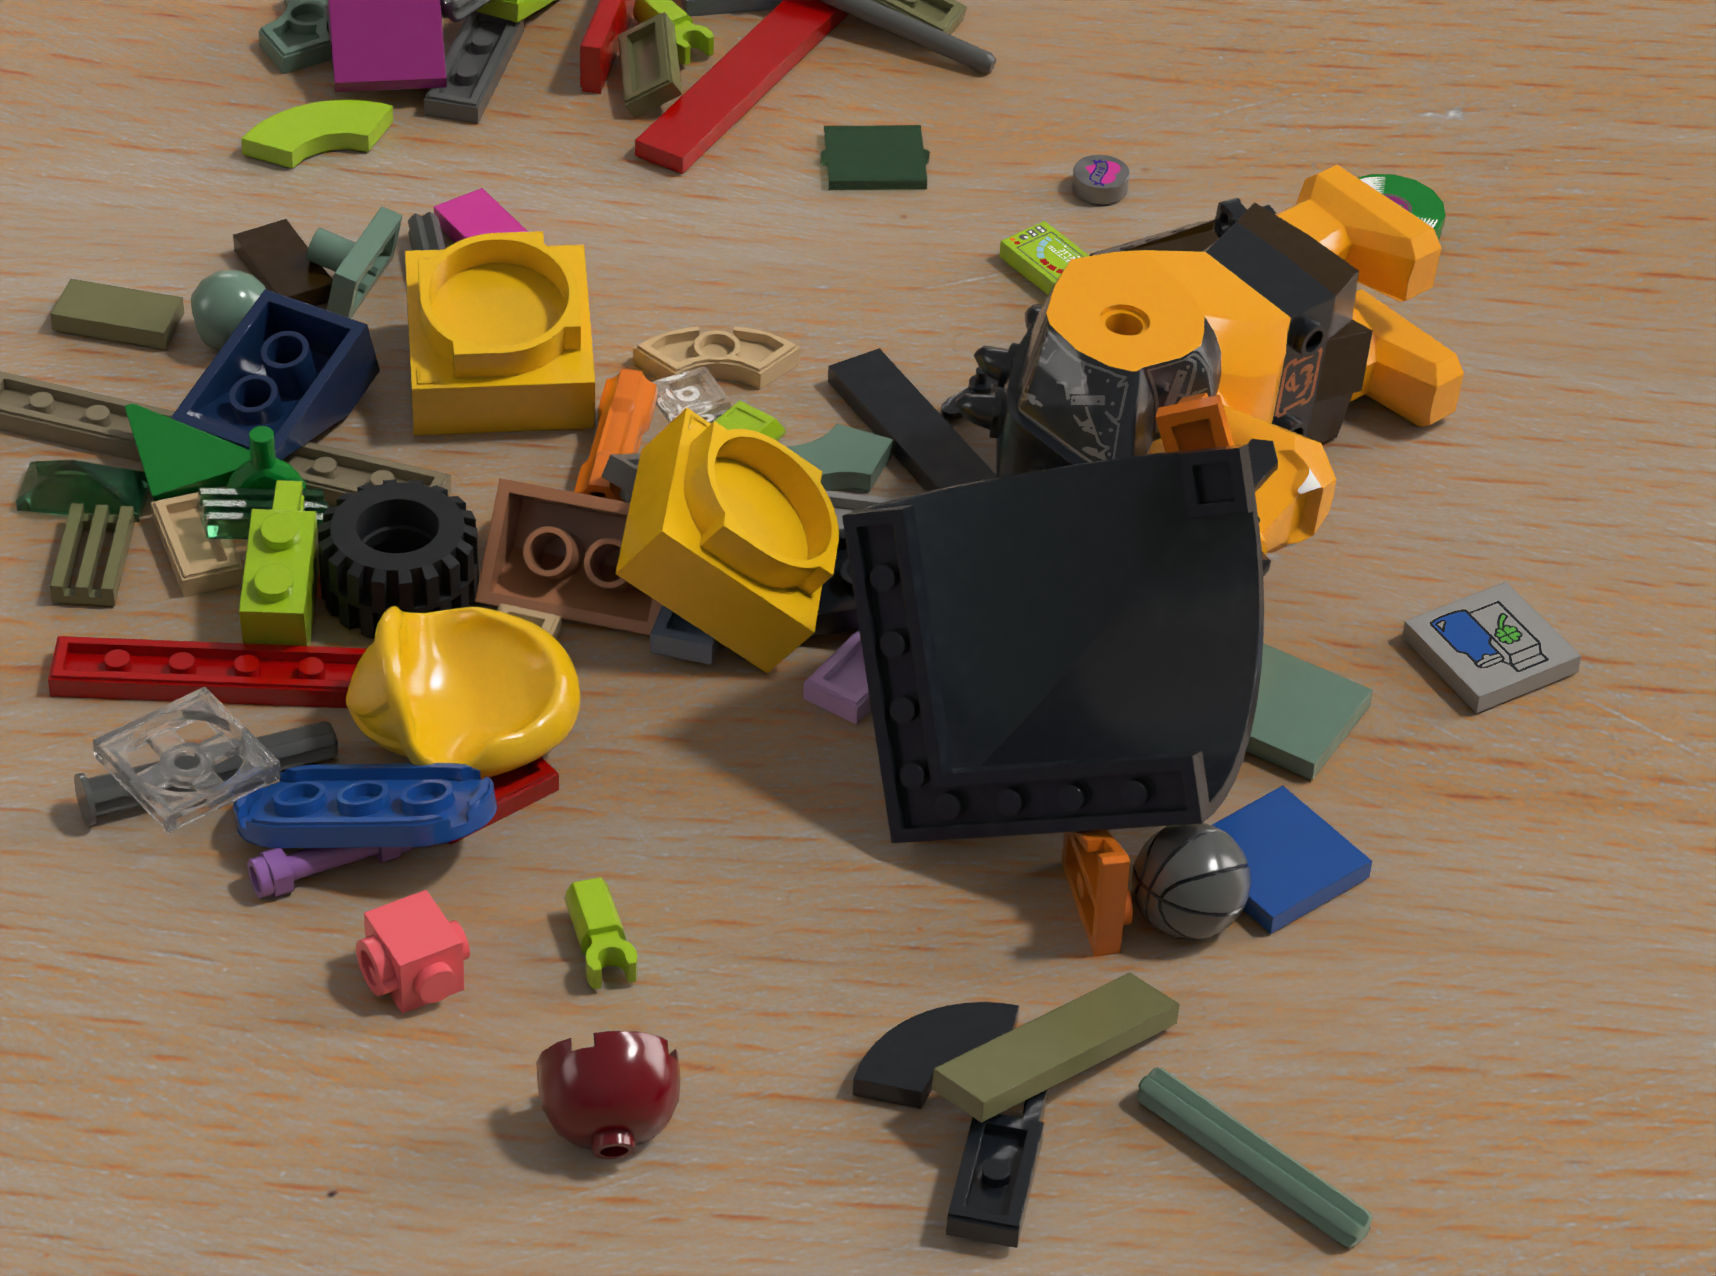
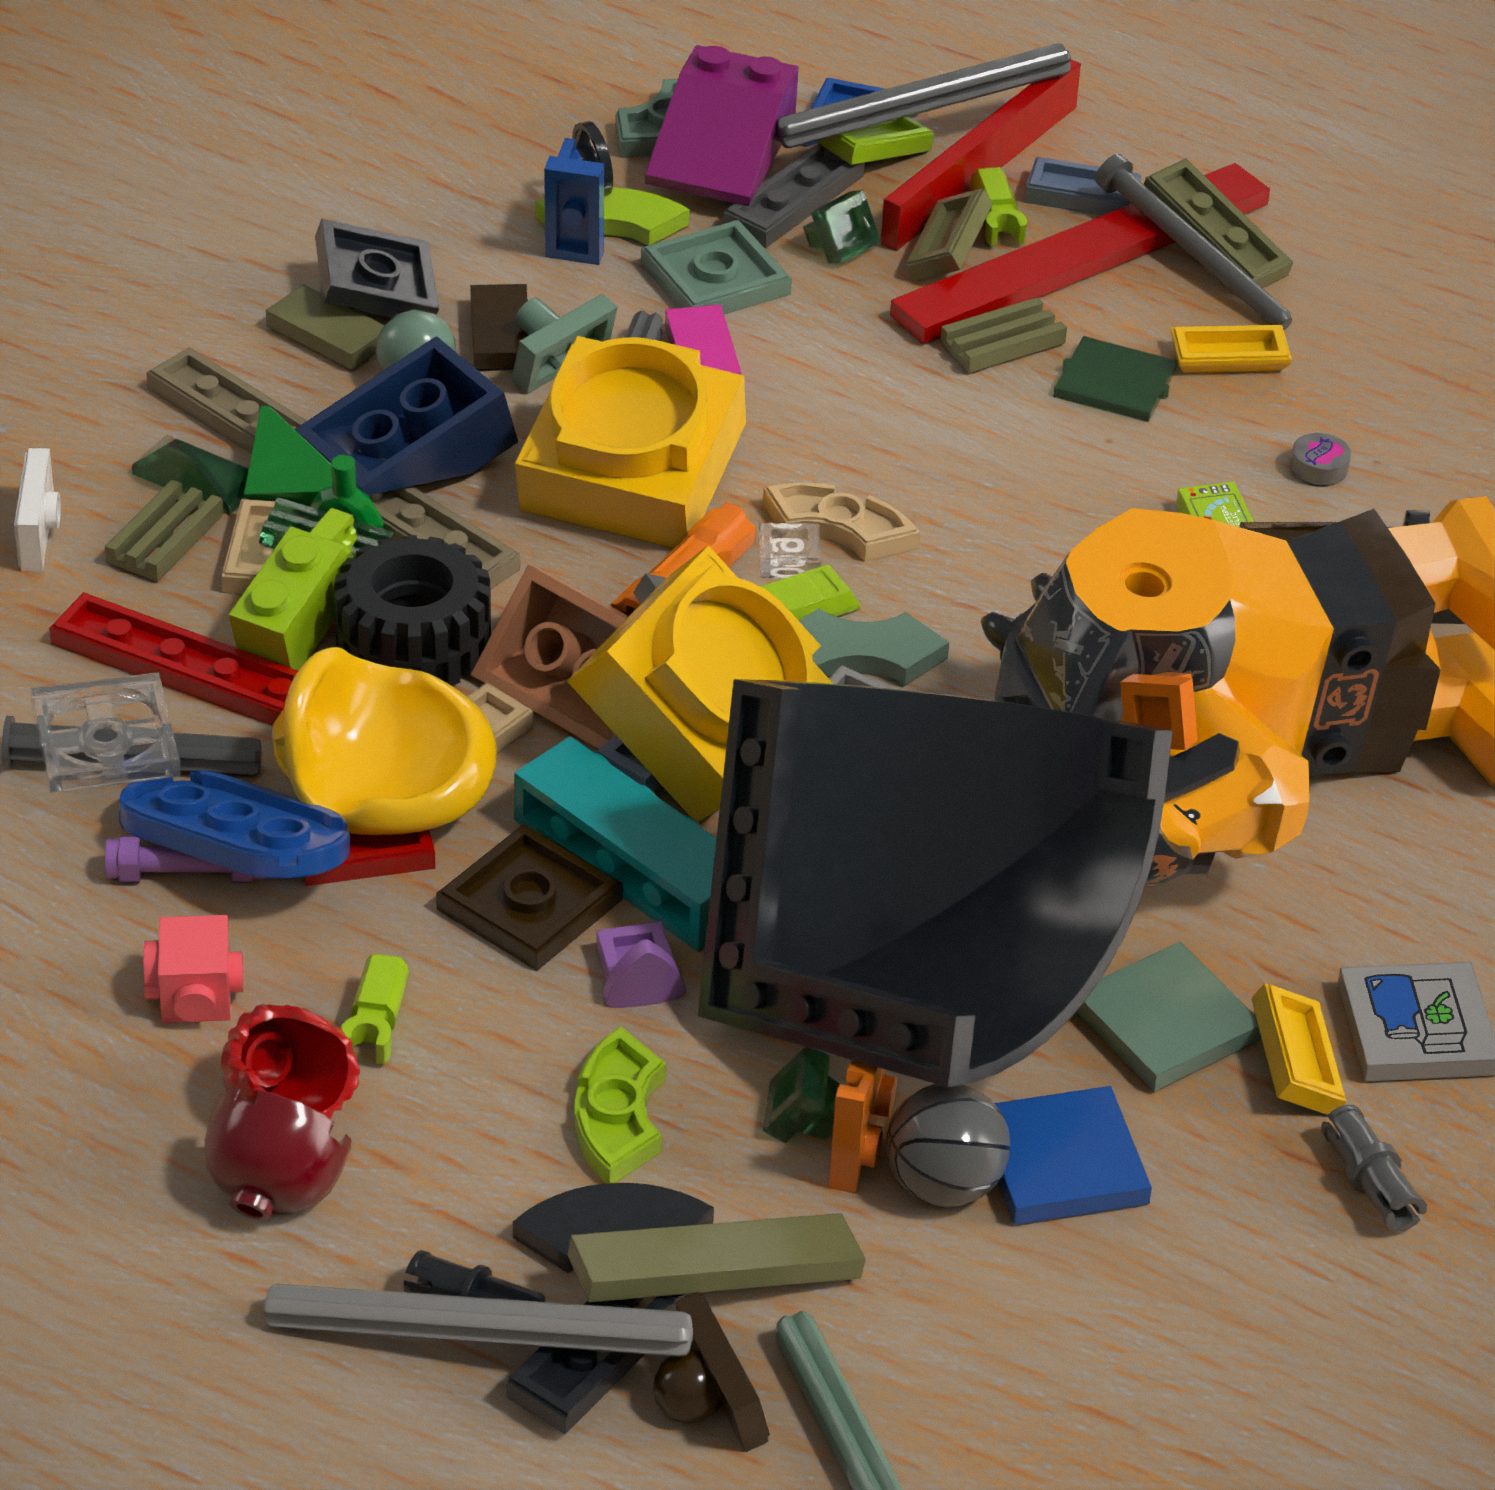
camera: 25 degrees right, 0 degrees up
(138, 247) = (374, 270): none -> black hinge
(295, 119) = (575, 196): none -> blue piece
(450, 156) = (716, 268): none -> sand green tile
(548, 84) = (843, 227): none -> clear green tile
(569, 997) = (292, 1056): none -> red hair
(666, 787) = (529, 897): none -> dark brown tile
(736, 706) = (624, 832): none -> teal brick
(745, 141) = (1002, 335): none -> olive tile
(806, 816) = (638, 966): none -> medium lavender tile
(864, 1153) = (452, 1279): none -> black axle
(867, 950) = (612, 1106): none -> lime tile
(888, 1173) = (479, 1320): none -> light grey axle
(900, 412) = (965, 593): black tile -> none
(960, 101) = (1231, 348): none -> yellow tile
(1031, 883) = (801, 1098): none -> clear green tile
(1116, 1150) = (708, 1378): none -> dark brown tile
(1415, 702) = (1298, 1049): none -> yellow tile
(1538, 782) = (1373, 1168): none -> dark grey pin

